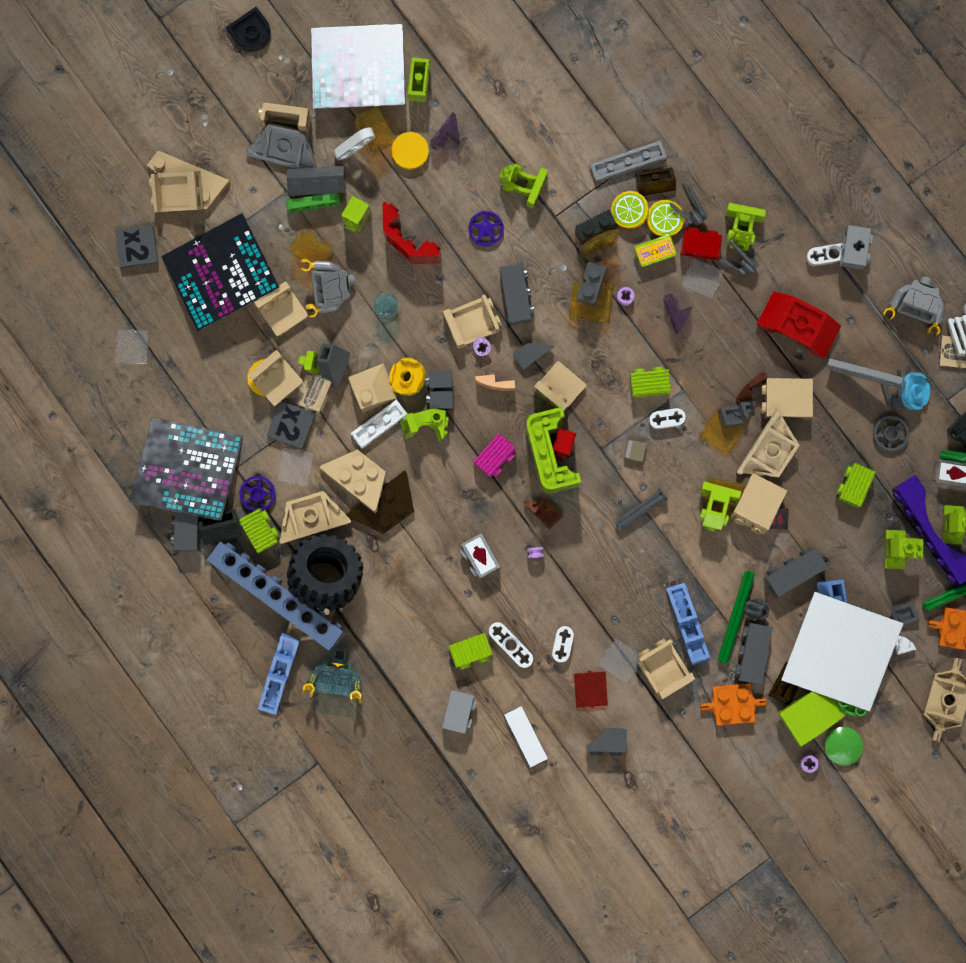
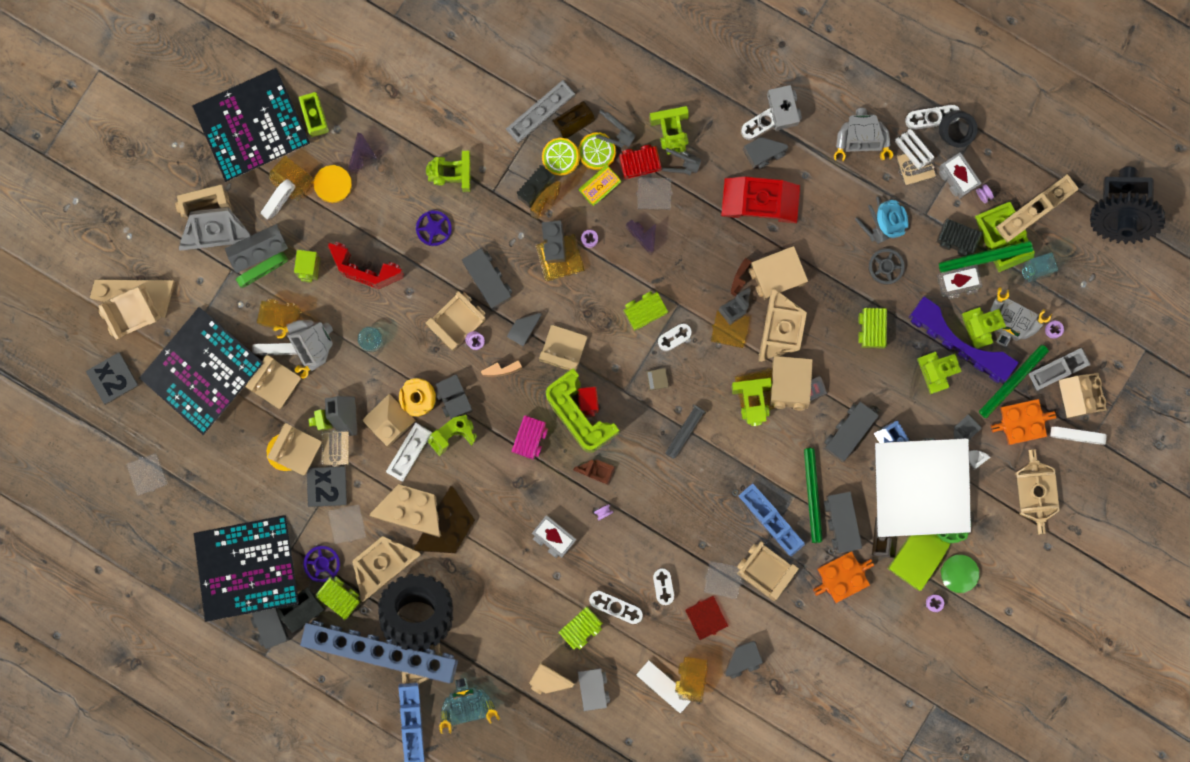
camera: 25 degrees left, 0 degrees up
(250, 31) = (136, 131): black tile -> none
(294, 279) = (273, 349): none -> white beam
(421, 686) = (548, 680): none -> tan slope
(554, 741) = (692, 679): none -> clear yellow brick
(756, 609) = (829, 480): dark grey gear -> none
(819, 280) = (764, 150): none -> dark grey slope
(867, 374) = (841, 221): light grey tile -> none

